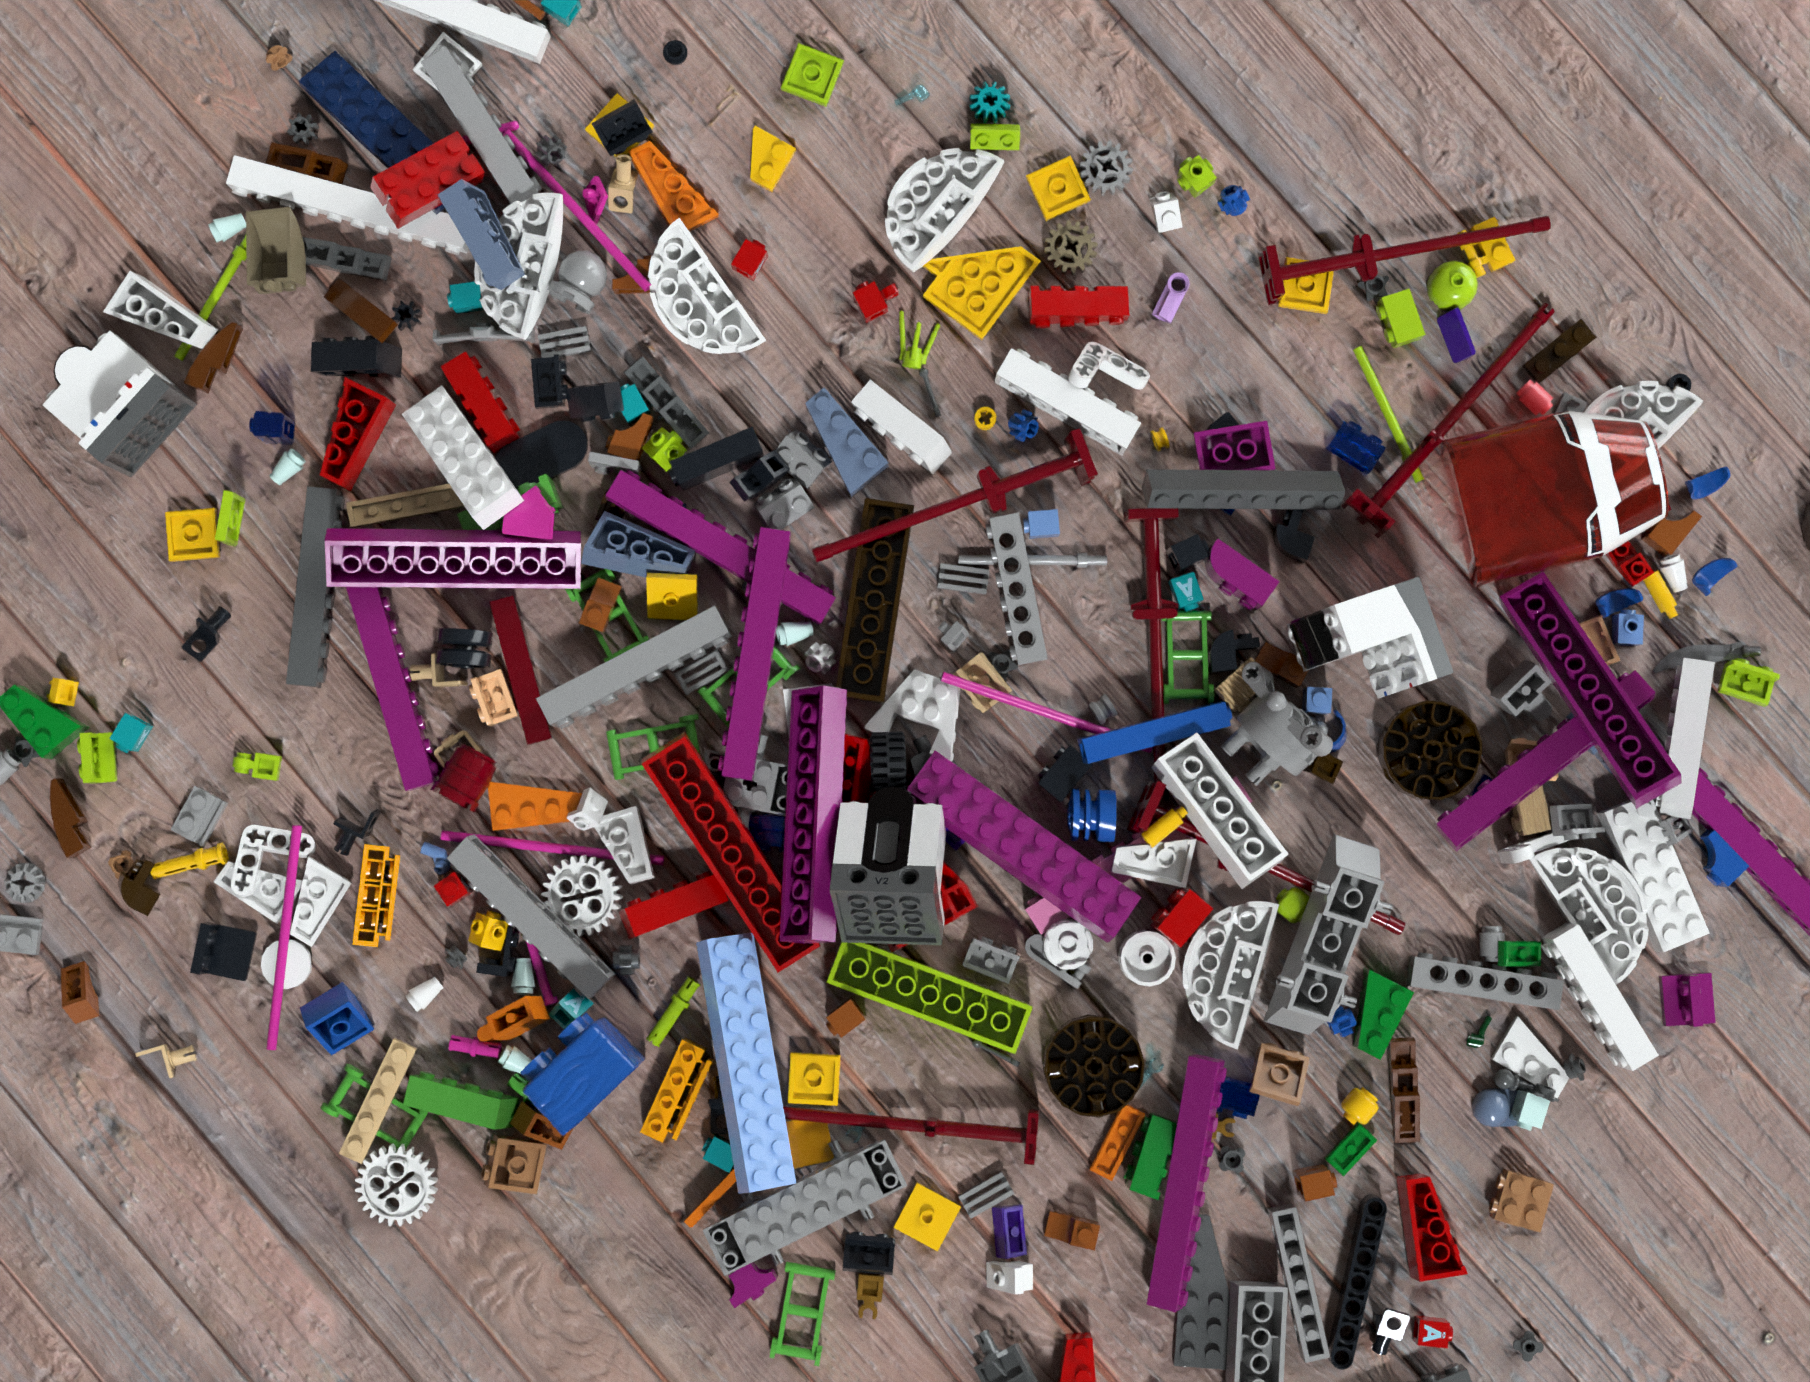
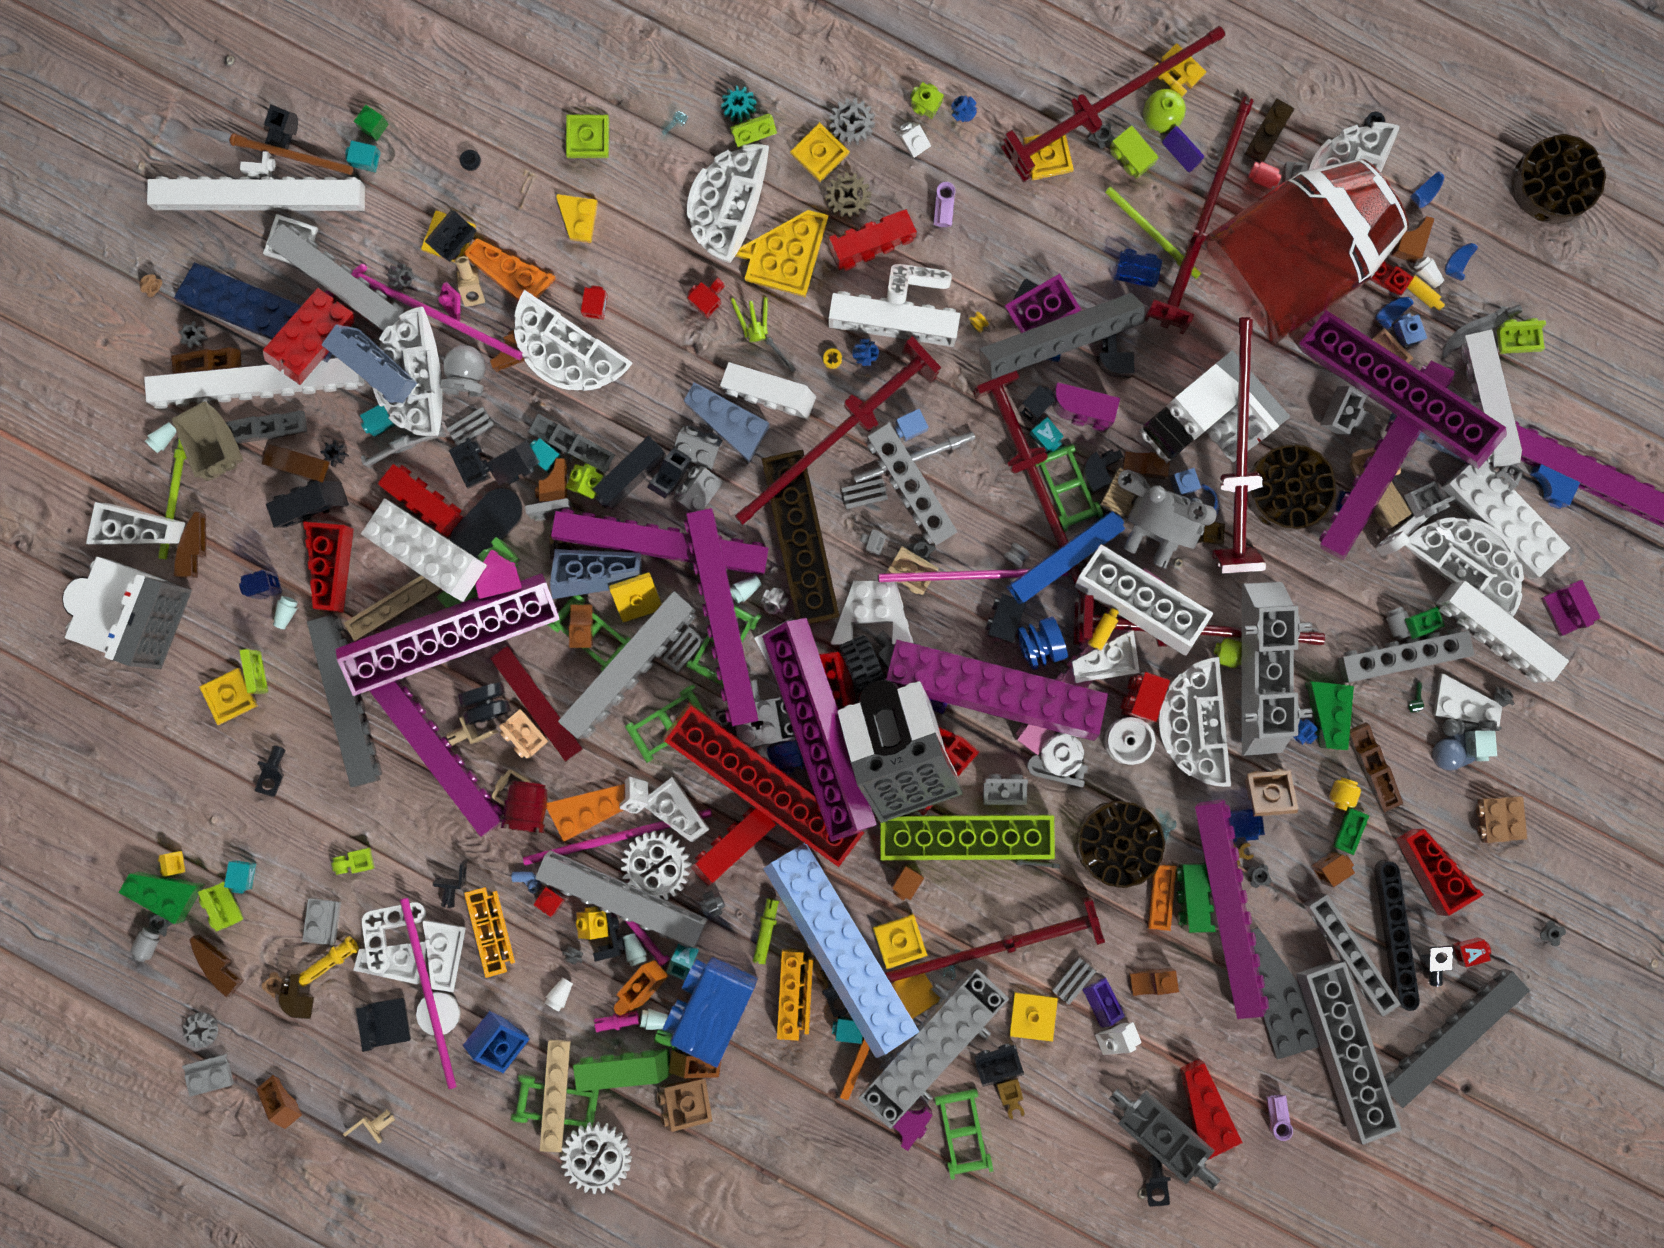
camera: 20 degrees left, 0 degrees up
(1343, 804) = (1241, 557): none -> dark red piece

